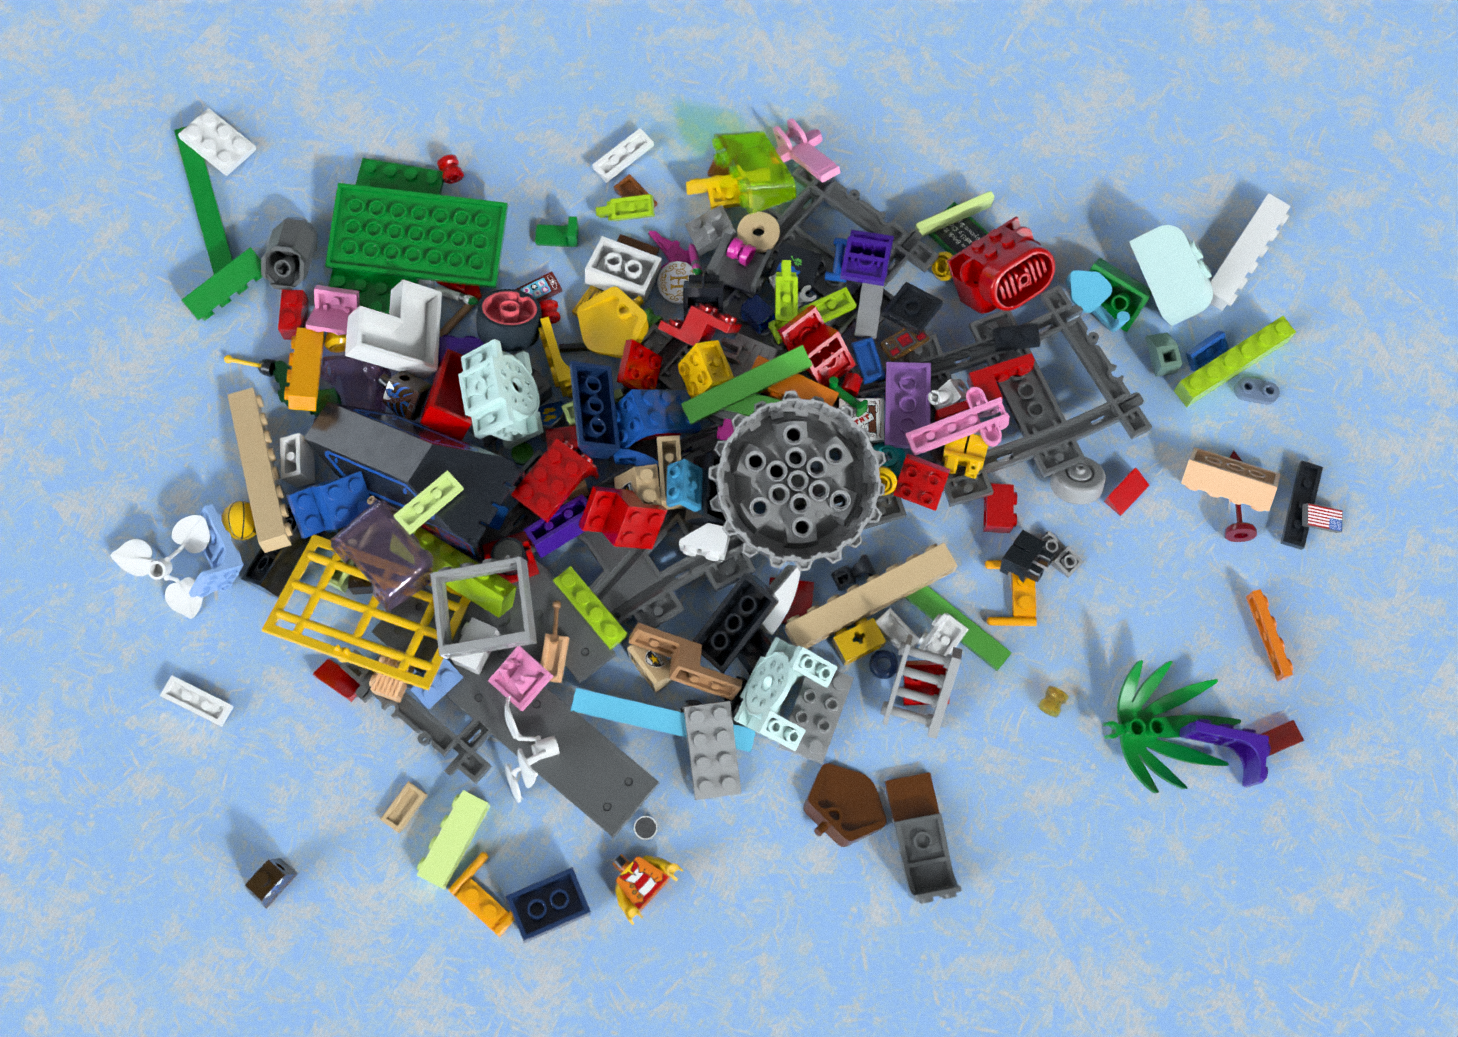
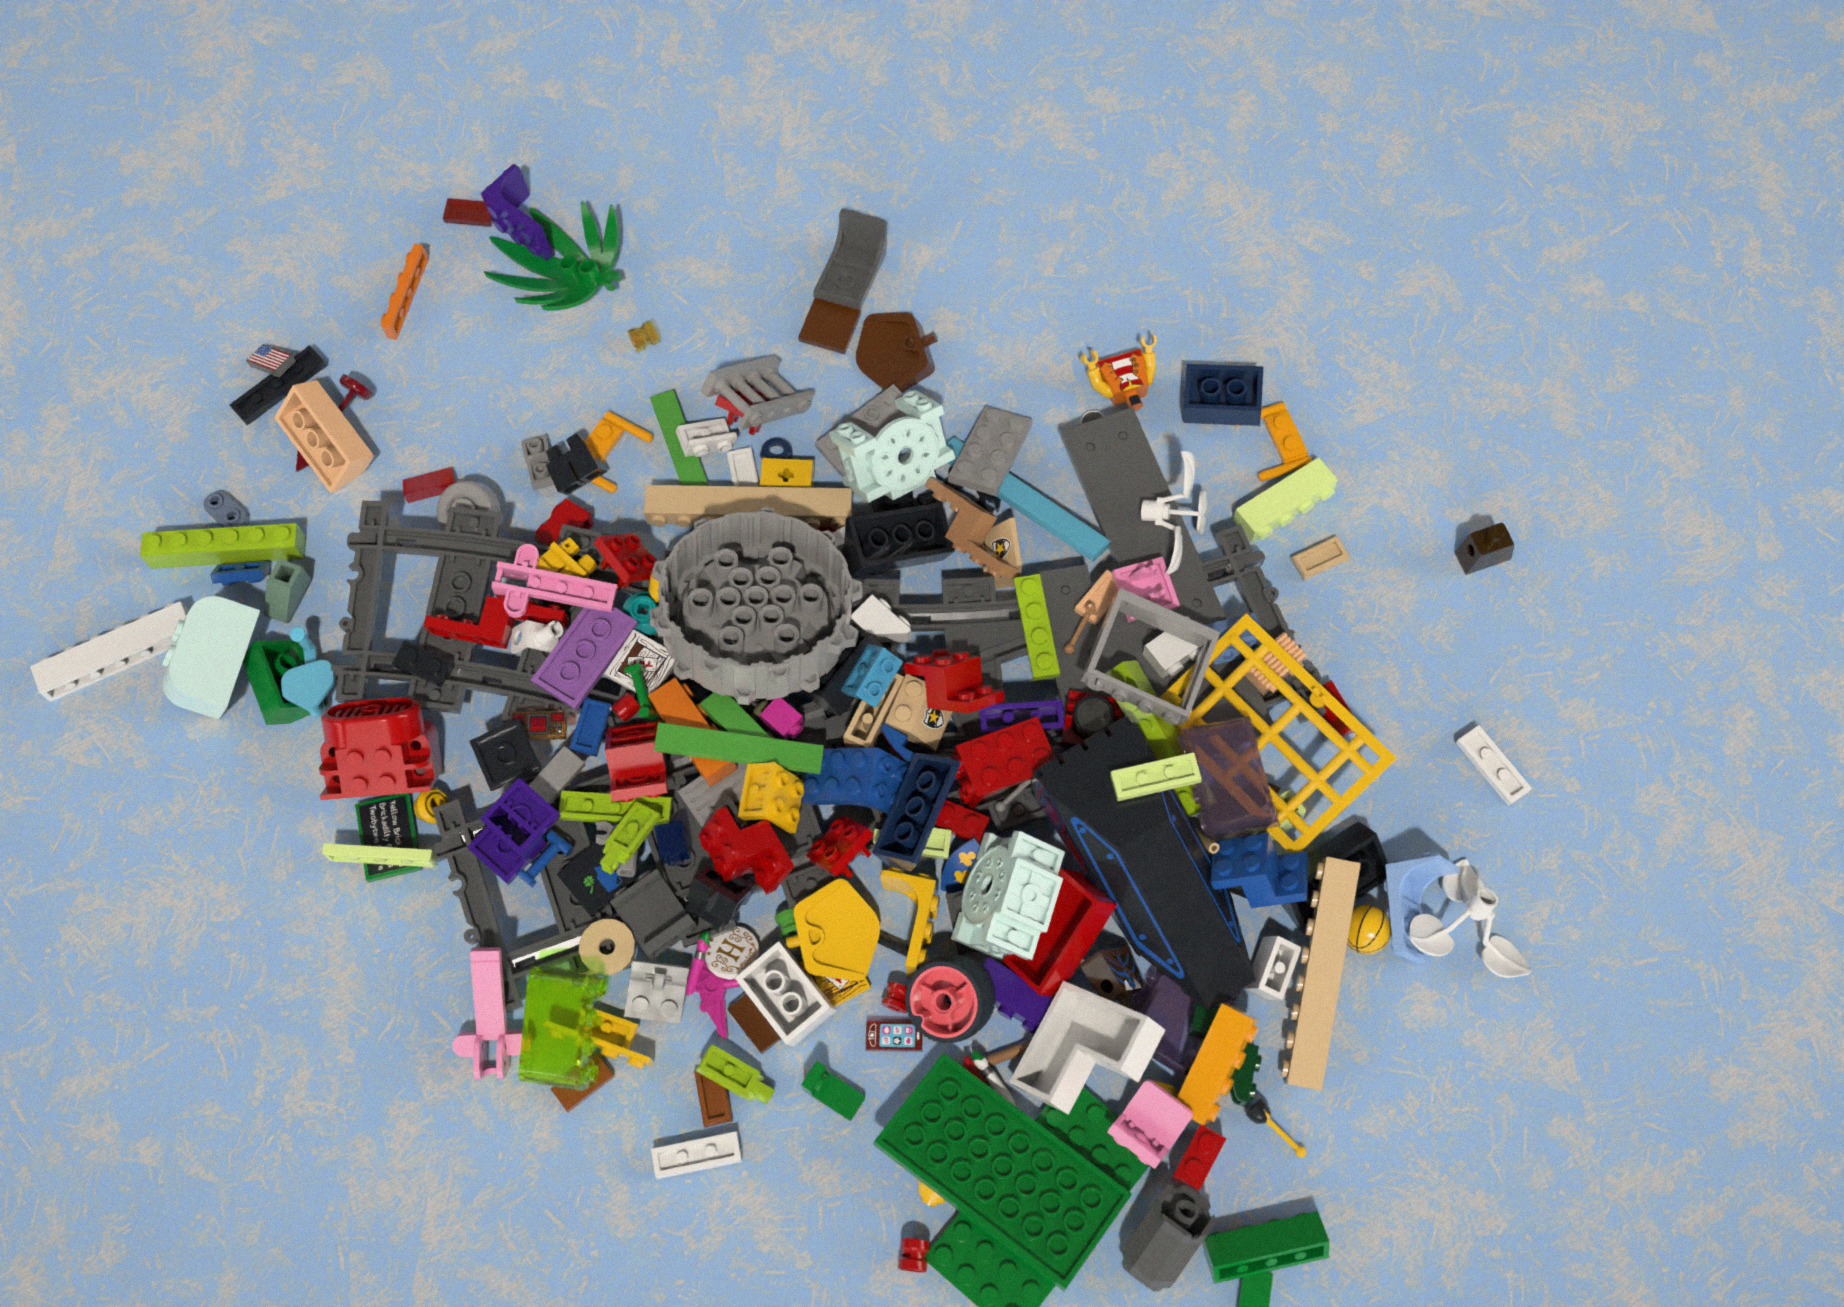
camera: 145 degrees left, 5 degrees down
(741, 251) = (643, 925): dark pink wheel -> none

